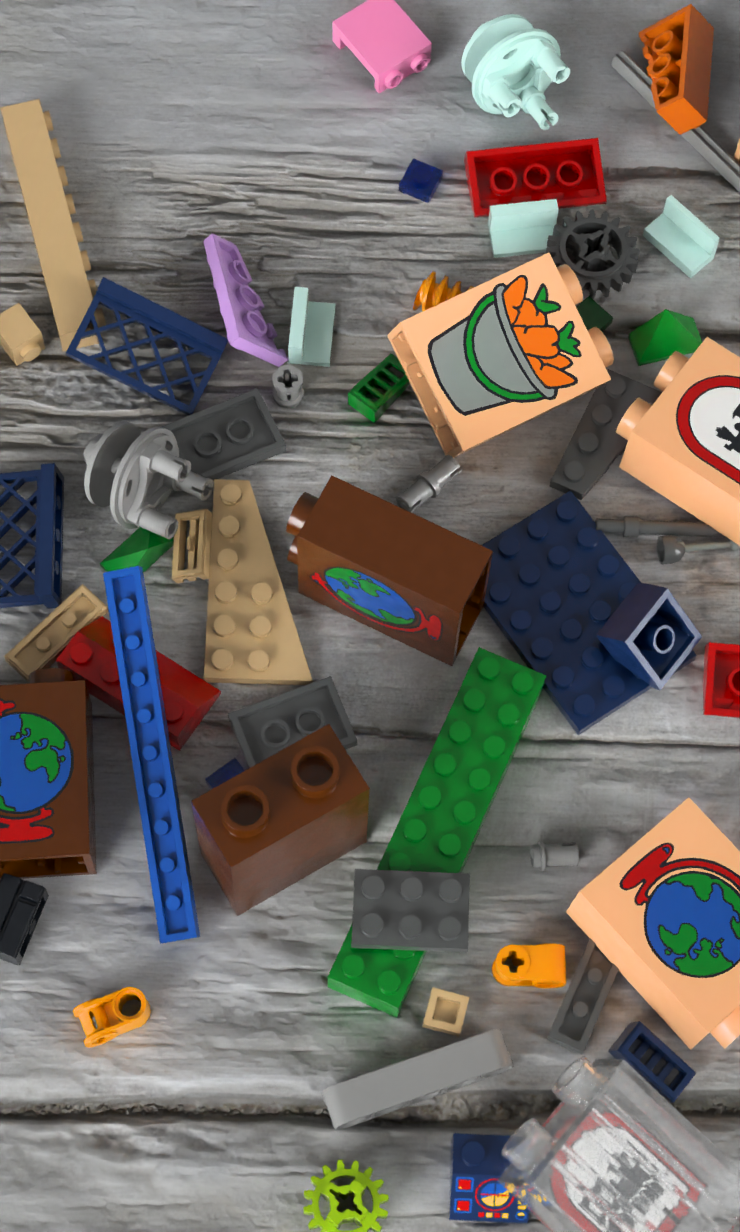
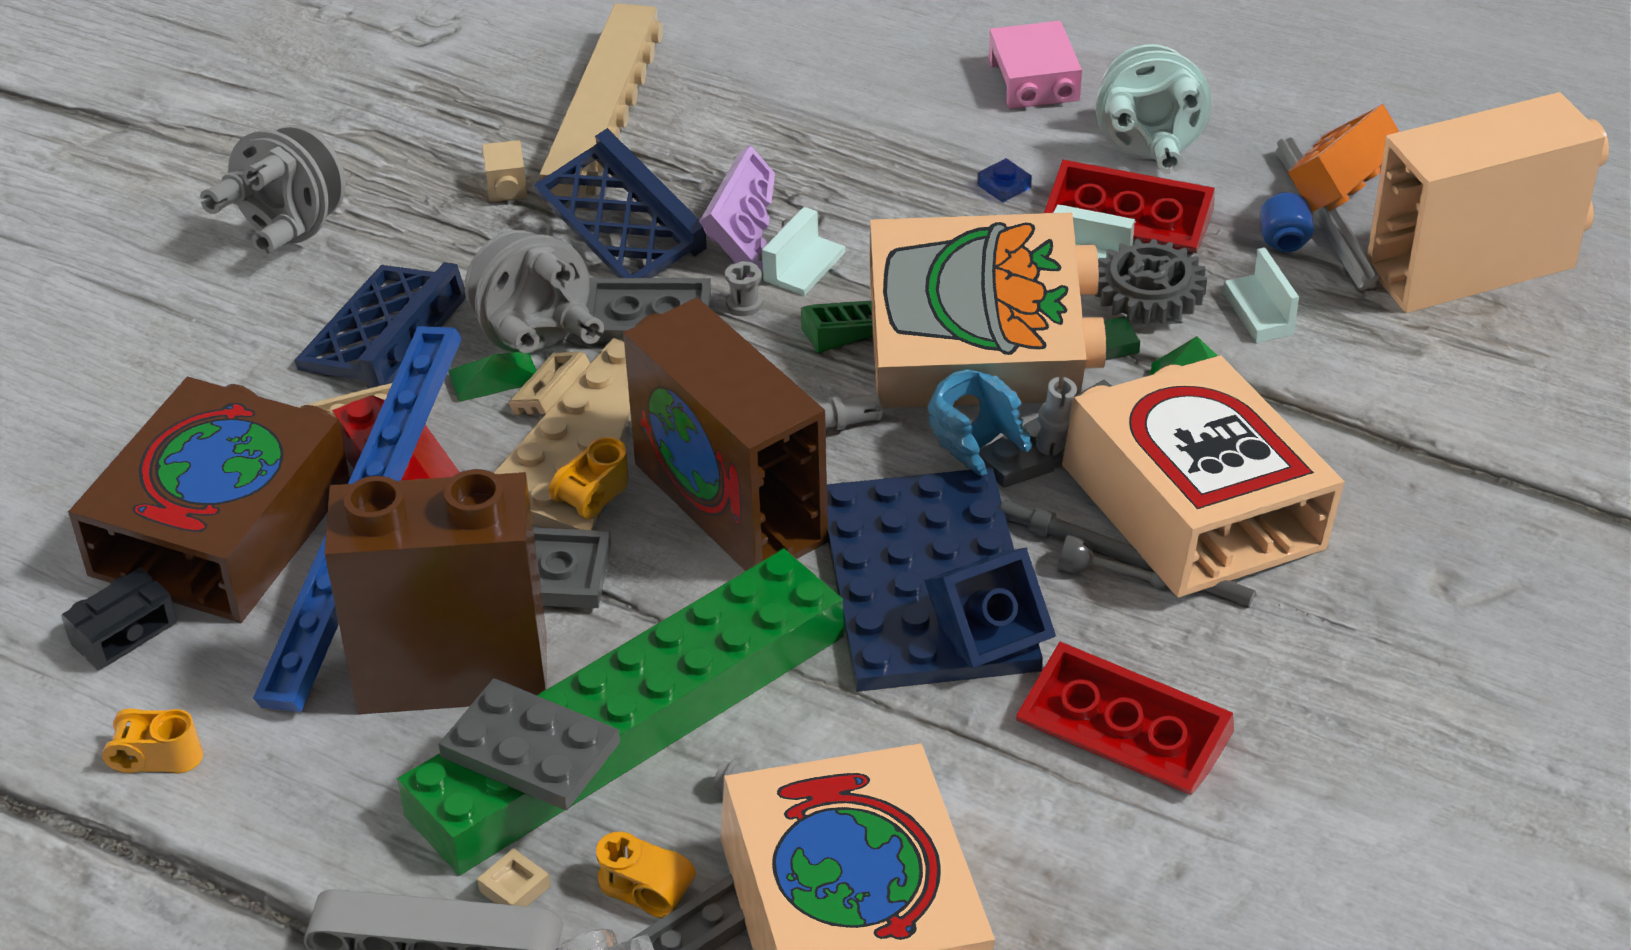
camera: 30 degrees right, 25 degrees down
(293, 641) = (594, 476): none -> light orange piece
(548, 442) = (996, 416): none -> dark azure piece
(612, 440) = (1055, 415): none -> light grey pin
(662, 148) = (1286, 222): none -> blue head

